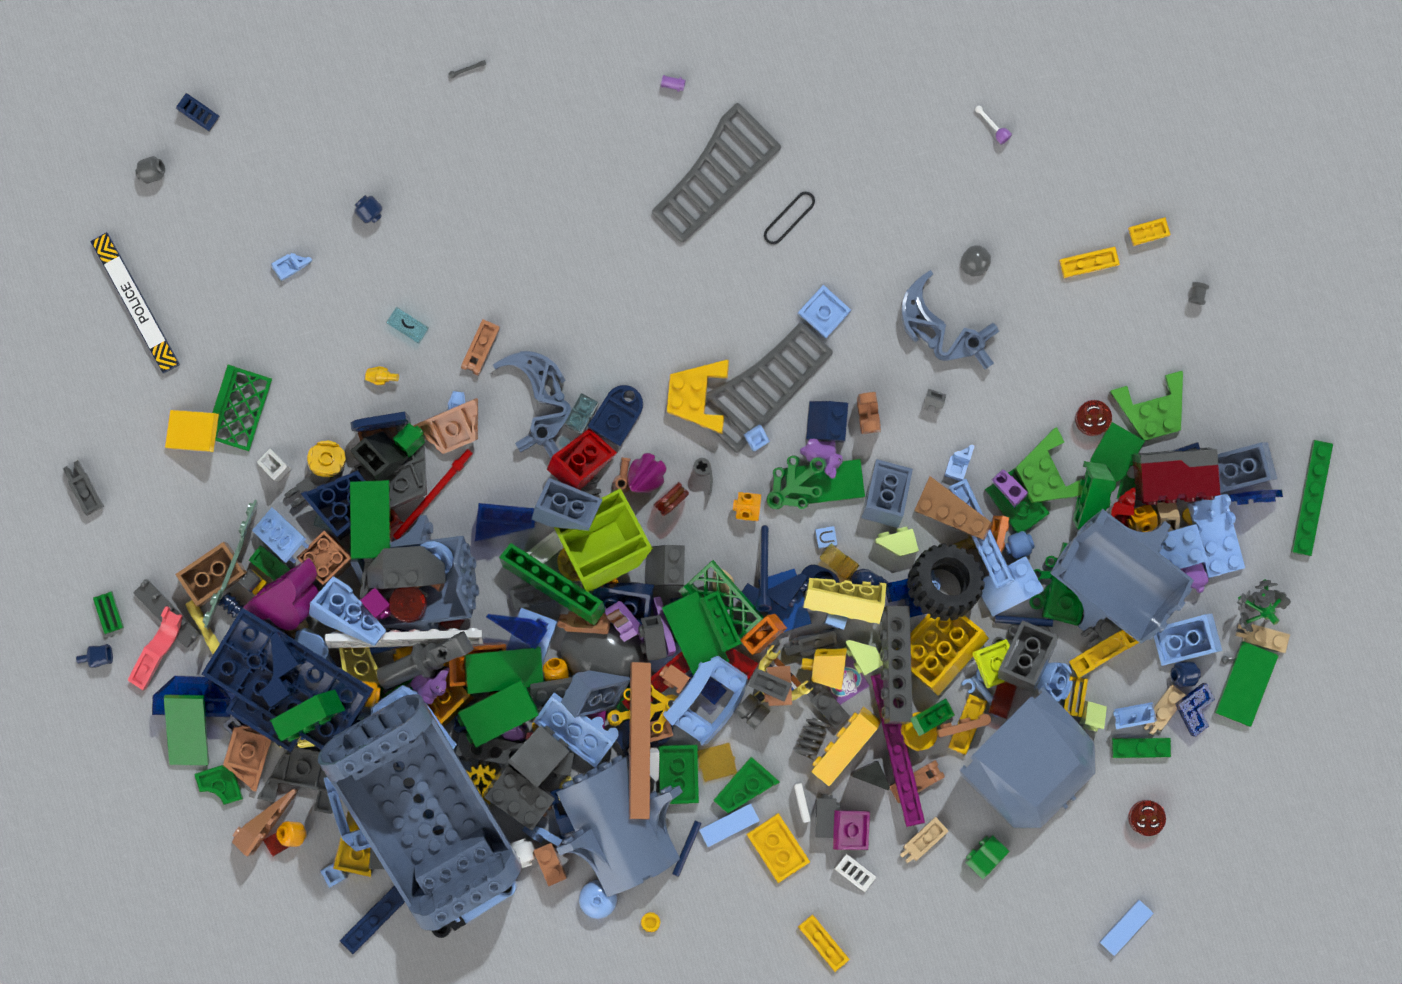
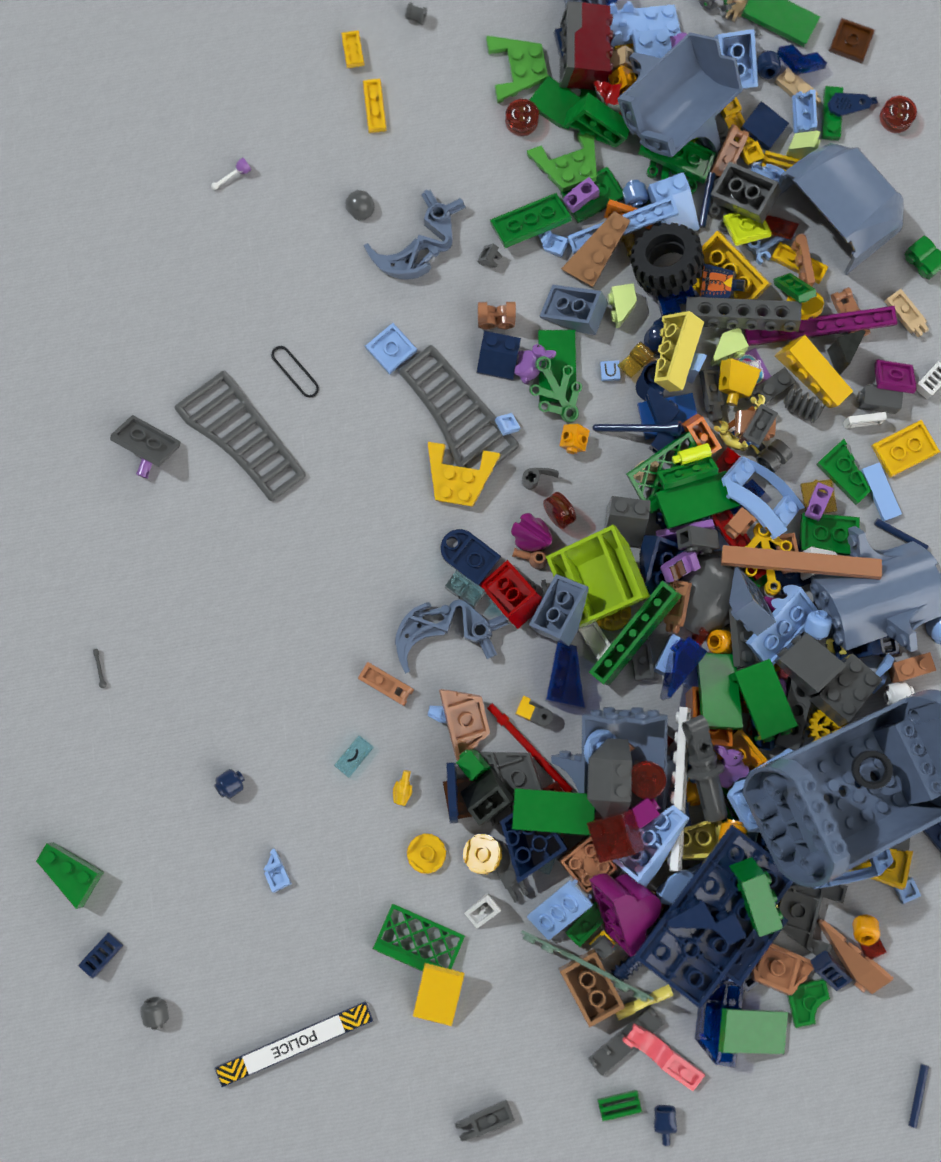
camera: 85 degrees left, 5 degrees down
(143, 896) = (918, 1097): none -> dark blue bar
(252, 796) = (830, 970): none -> dark blue slope
(269, 72) = (69, 873): none -> green wedge
(322, 406) = (426, 853): none -> yellow tile
(350, 577) = (616, 836): none -> clear red brick
(438, 833) = (888, 769): none -> black tyre
(465, 495) = (534, 714): none -> leg
(556, 649) = (701, 637): none -> clear red piece
(579, 763) = (818, 624): none -> light blue head
(696, 79) = (145, 440): none -> dark grey plate
(708, 758) = (818, 501): none -> medium lavender leg
(739, 624) = (692, 454): none -> neon yellow cylinder
(928, 638) = (720, 282): none -> torso
(978, 438) = (530, 220): none -> green tile
(1079, 639) = (730, 150): none -> nougat plate
(1115, 675) = (764, 125): none -> dark blue tile
(1153, 768) = (848, 103): none -> dark blue piece
(1229, 763) = (851, 40): none -> reddish brown tile

